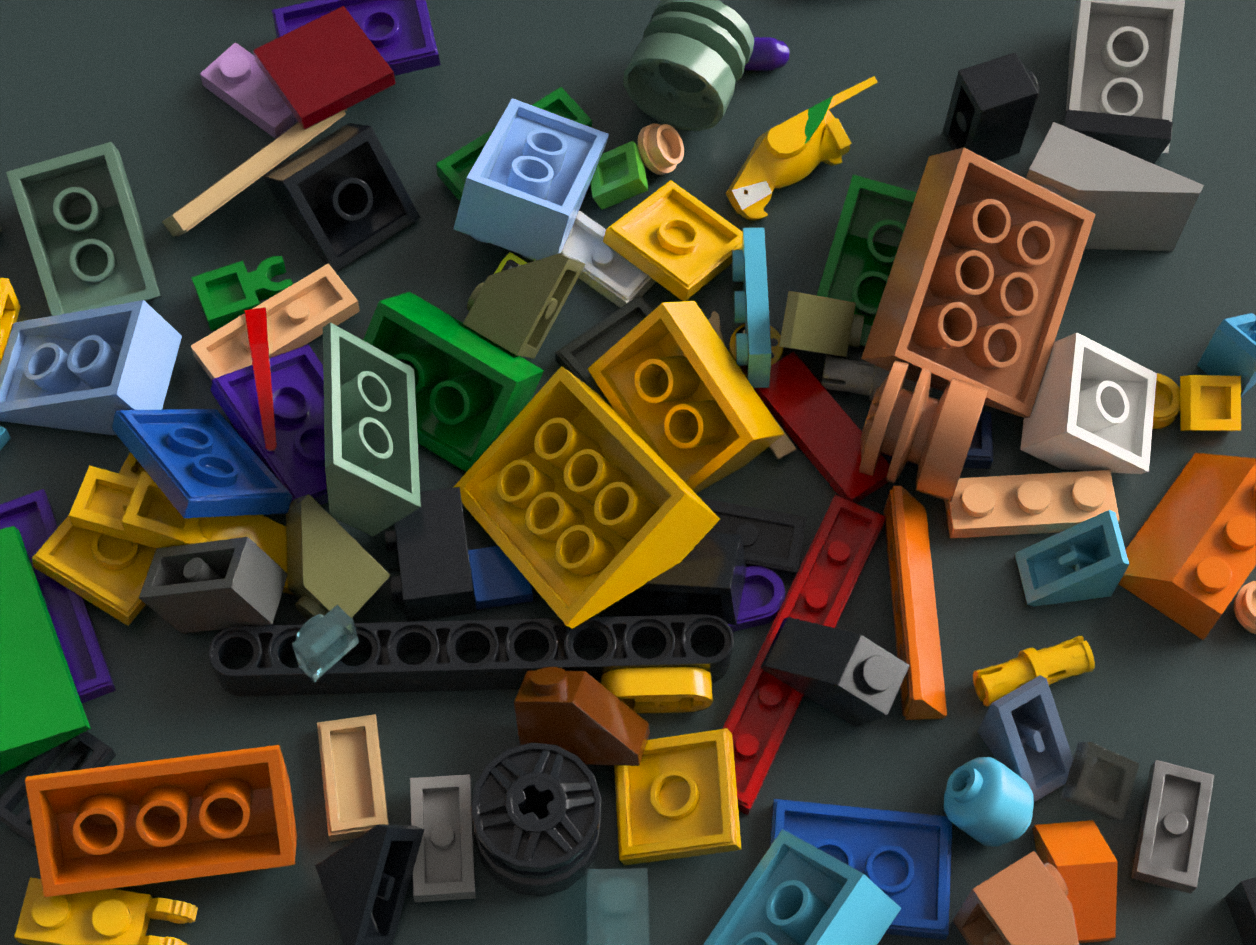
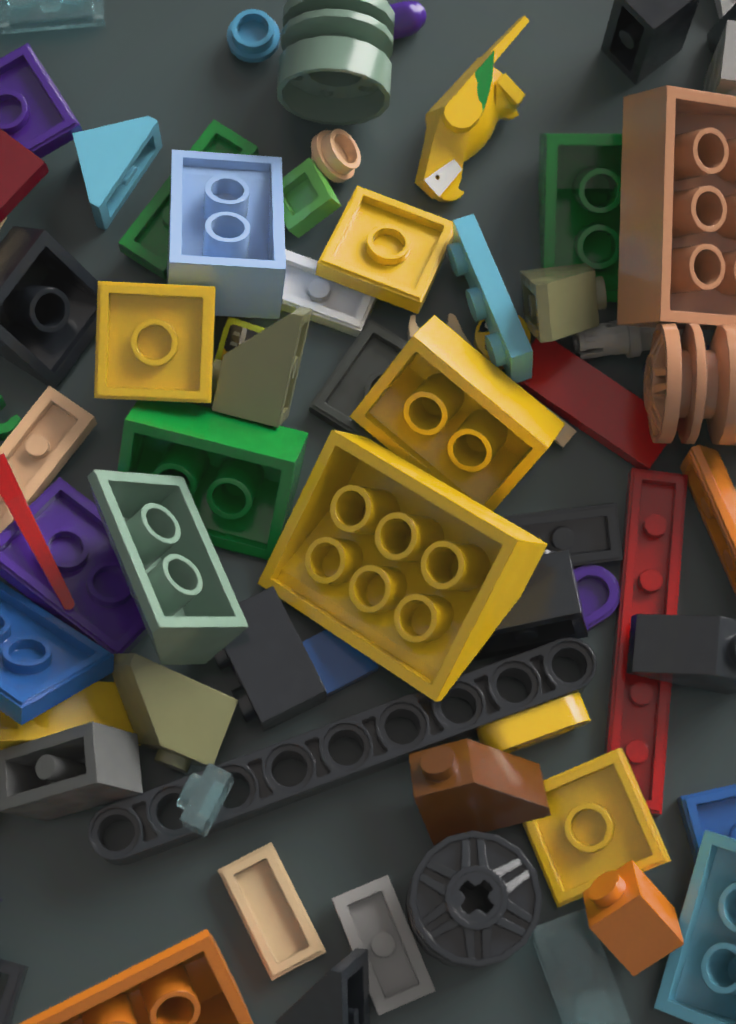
camera: 20 degrees left, 10 degrees up
(431, 246) = (154, 342): none -> yellow tile
(460, 98) = (114, 162): none -> medium azure slope
(623, 29) = (253, 36): none -> dark azure plate
(682, 882) = (632, 917): none -> orange brick

